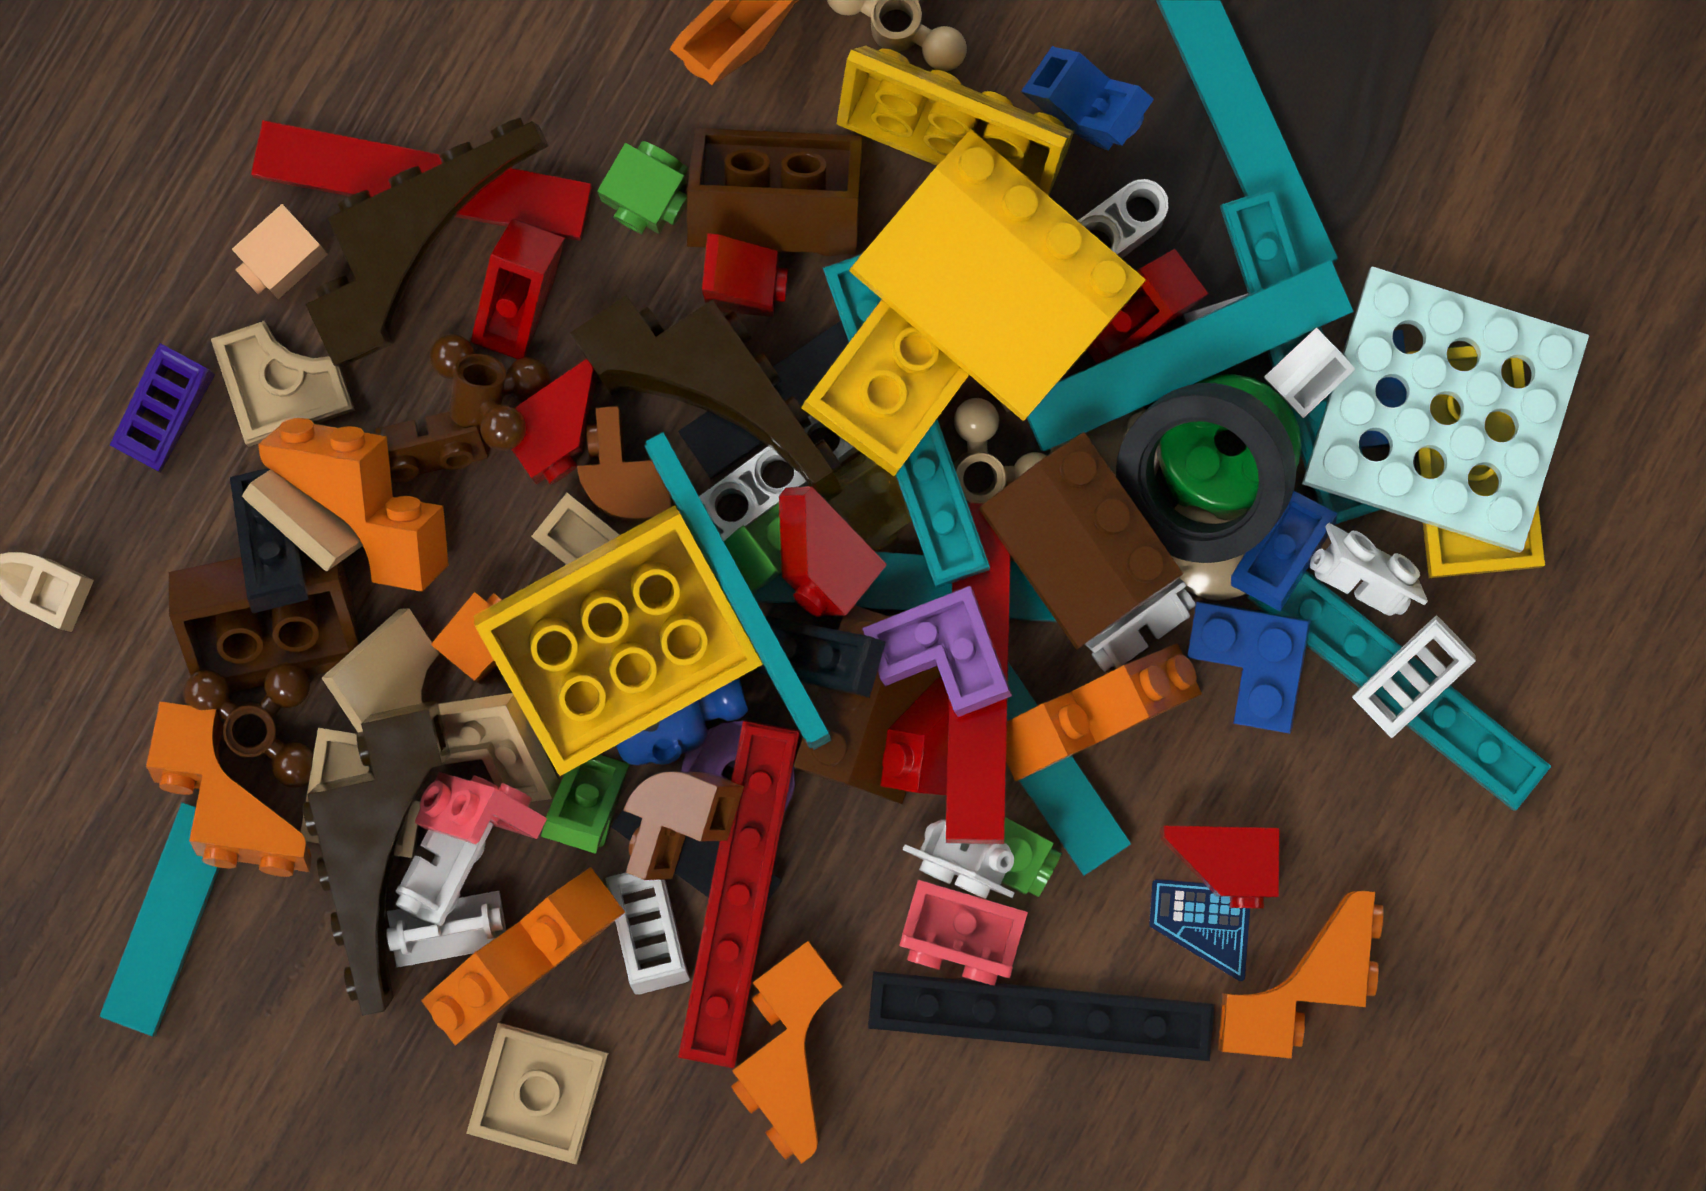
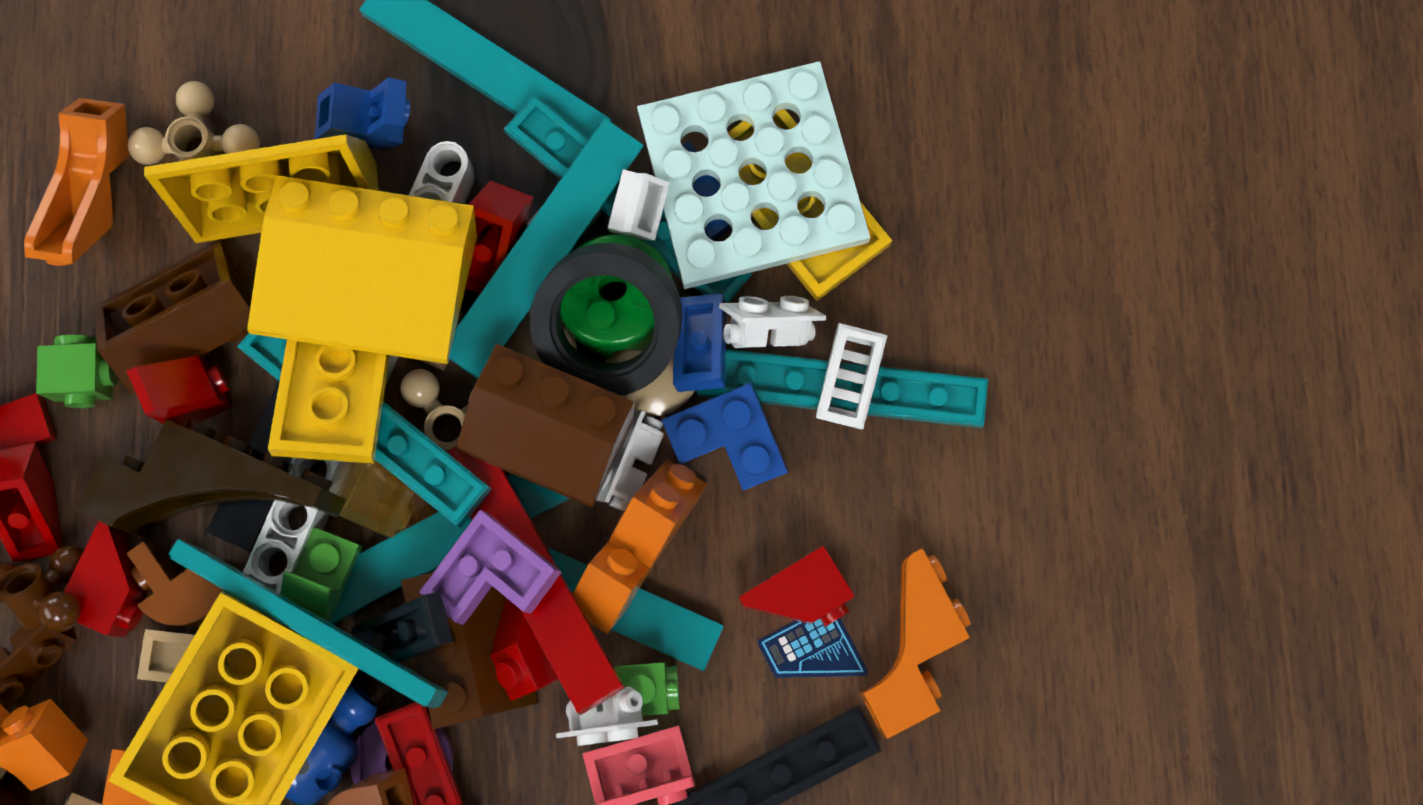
camera: 35 degrees left, 5 degrees down
(823, 554) = (360, 555): red slope -> none

